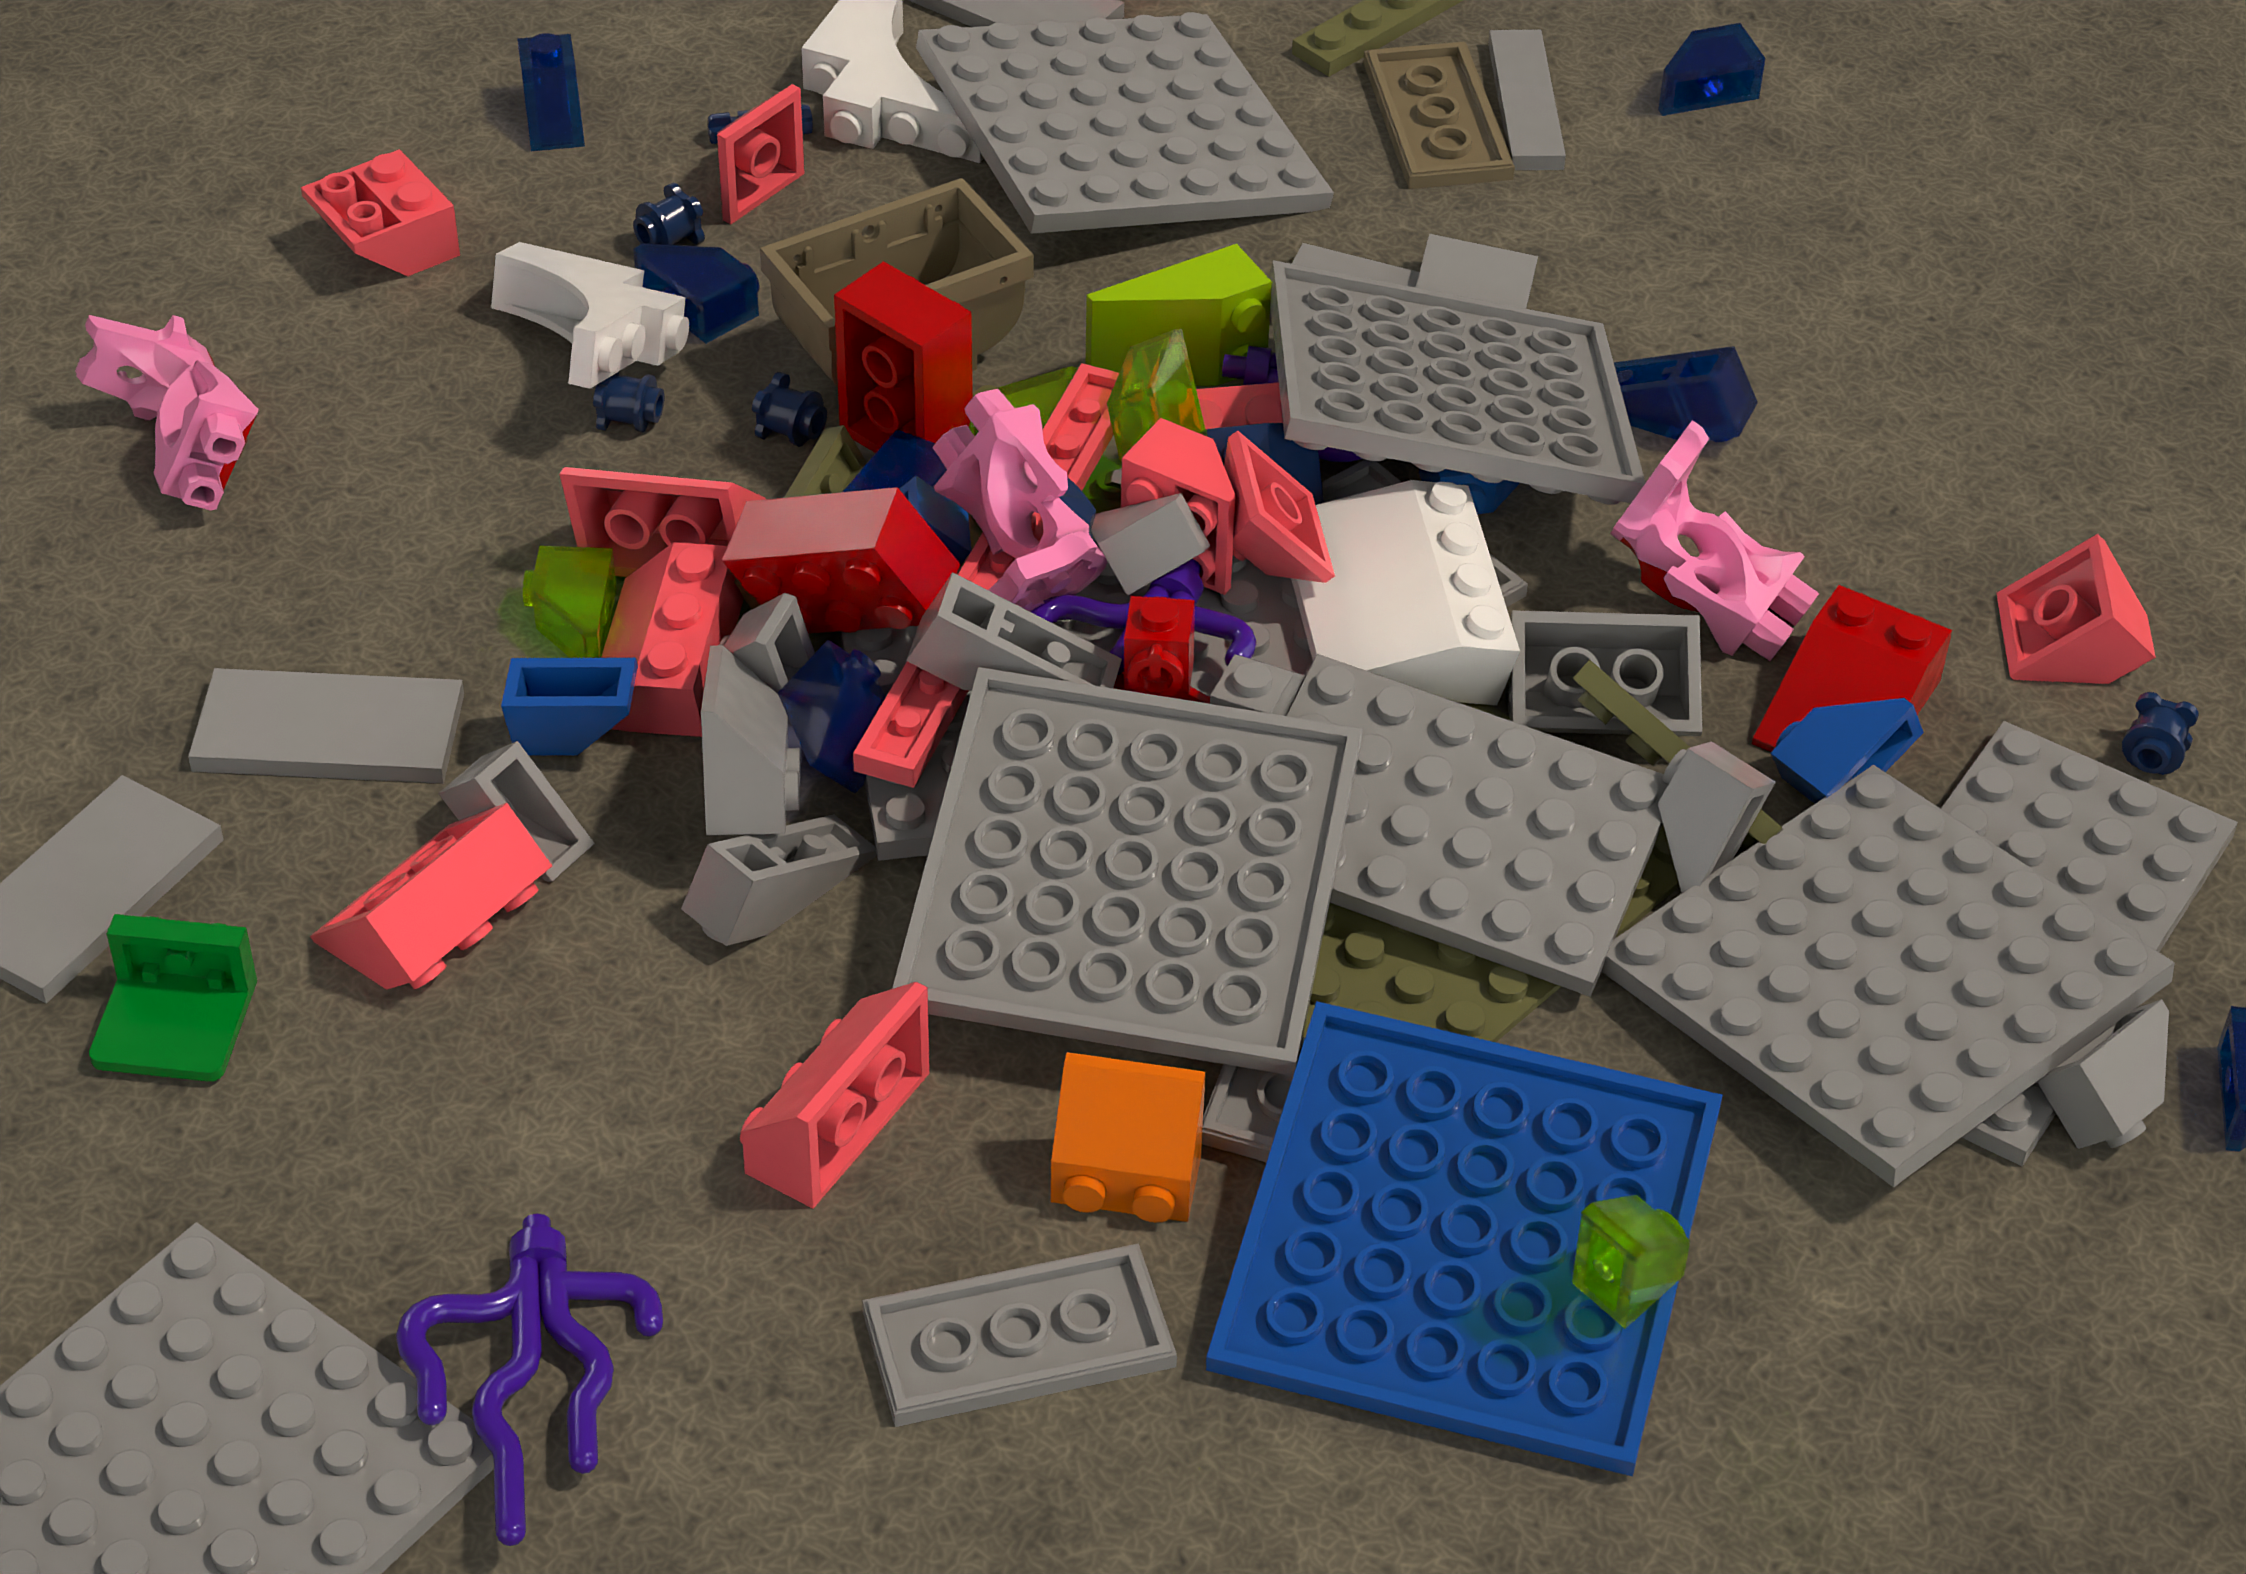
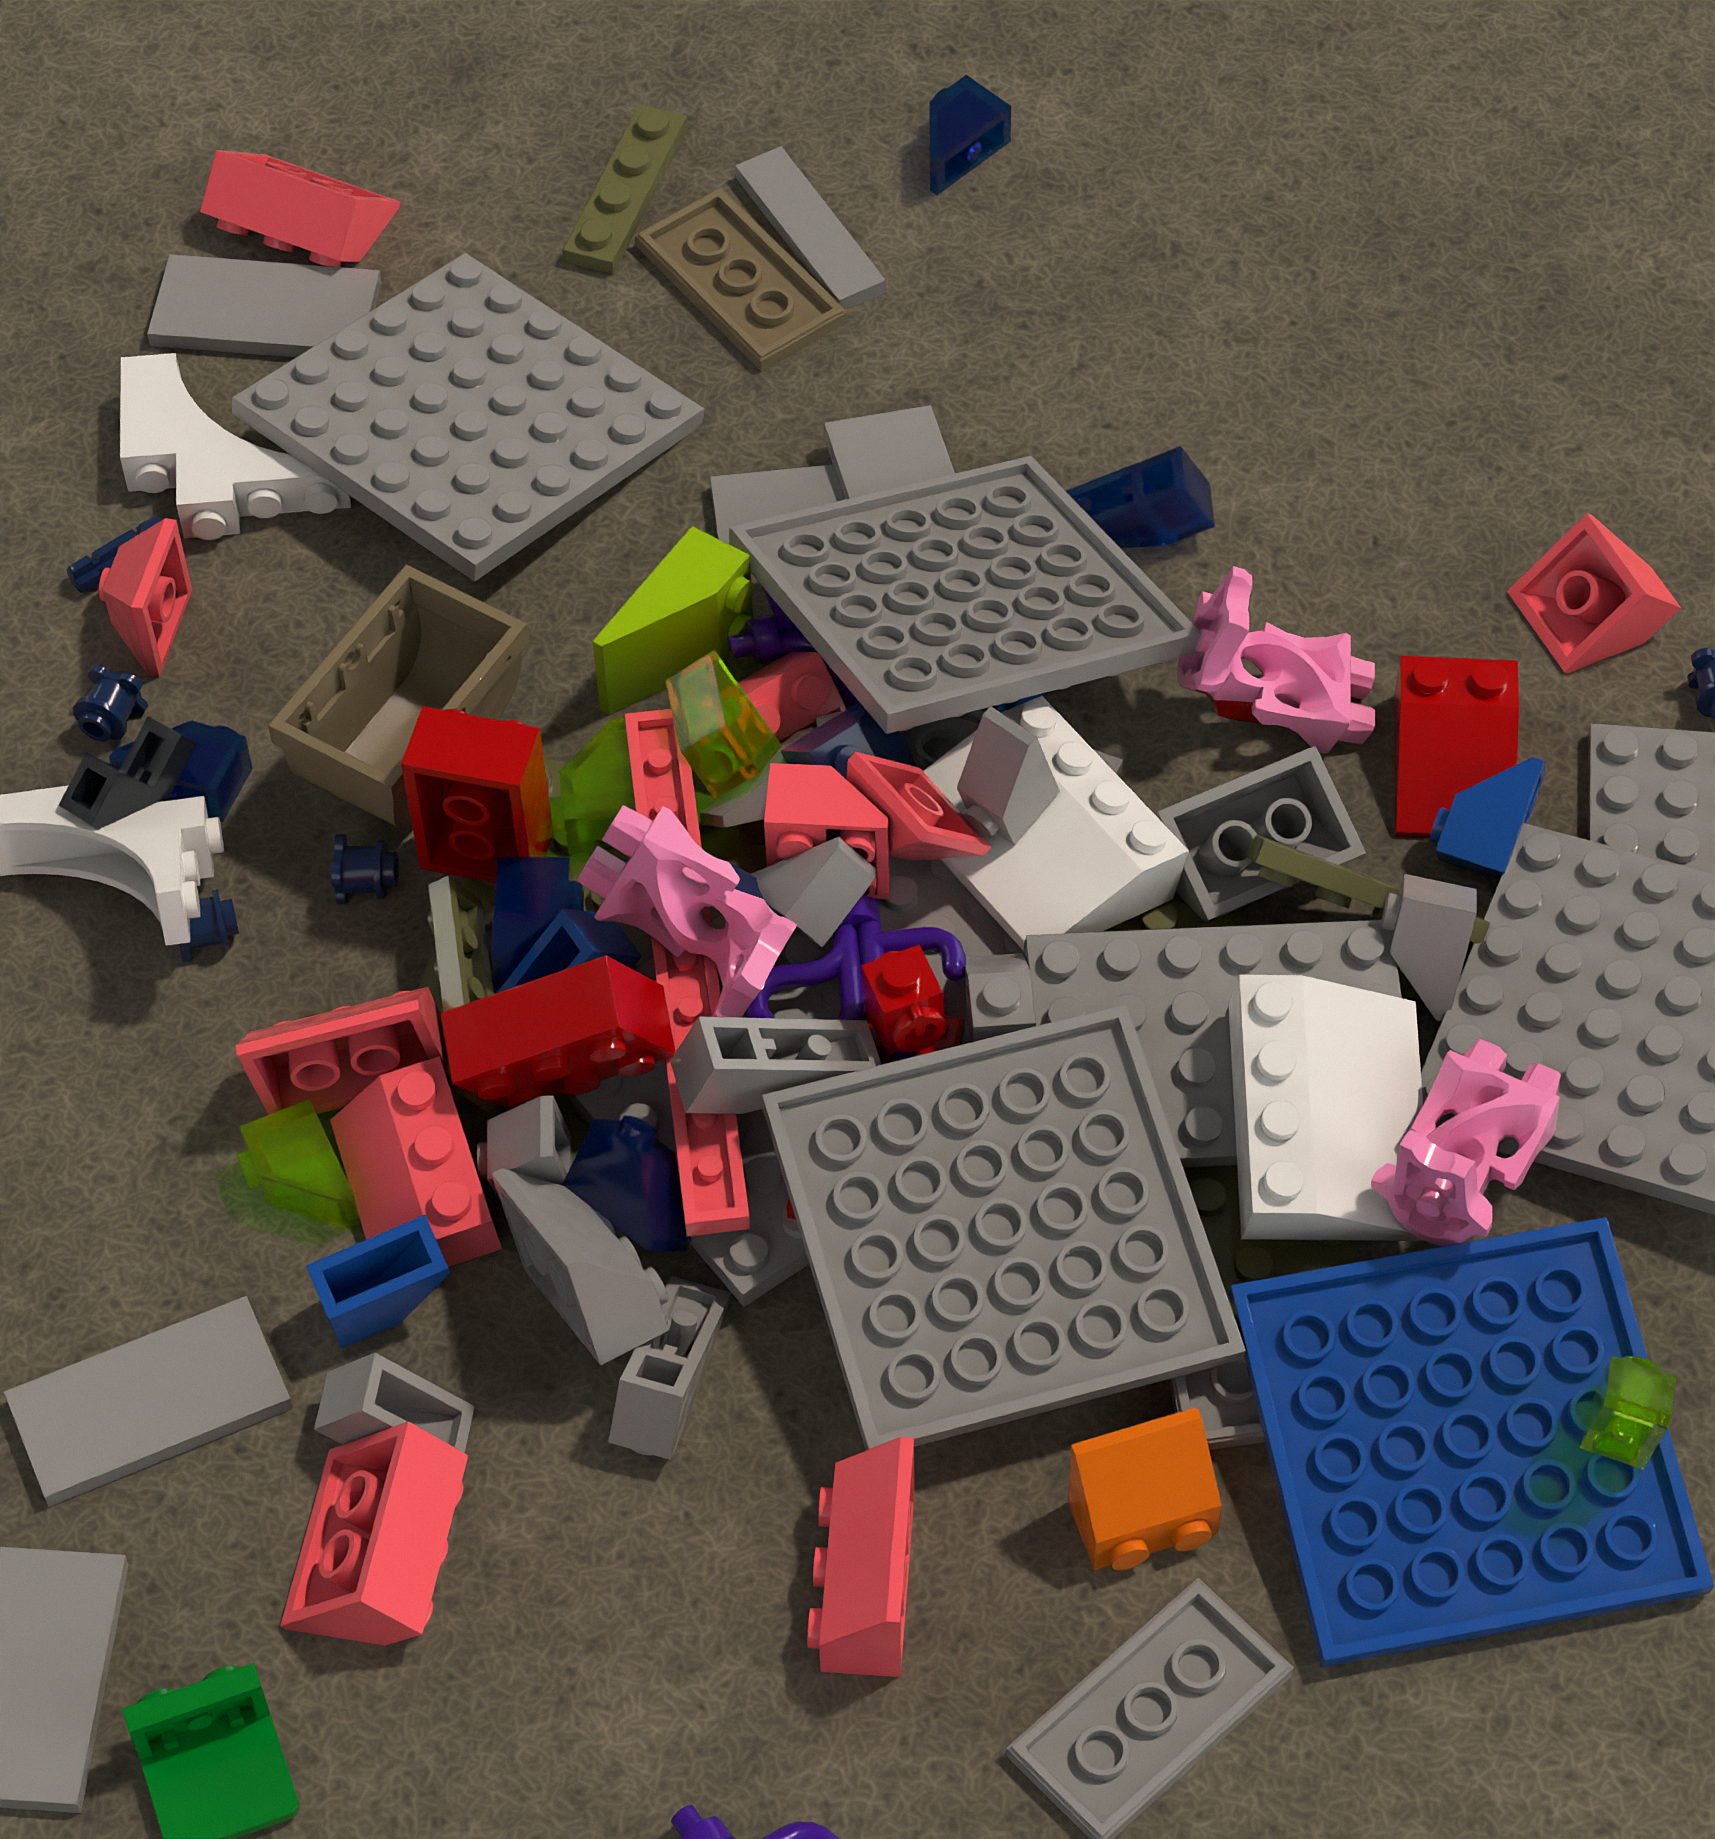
camera: 25 degrees left, 10 degrees up
(607, 262) = (148, 775): none -> black slope
(1373, 516) = (1005, 778): none -> light grey slope
(1507, 902) = (1319, 1105): none -> white slope
(1649, 960) = (1447, 1169): none -> bright pink hips

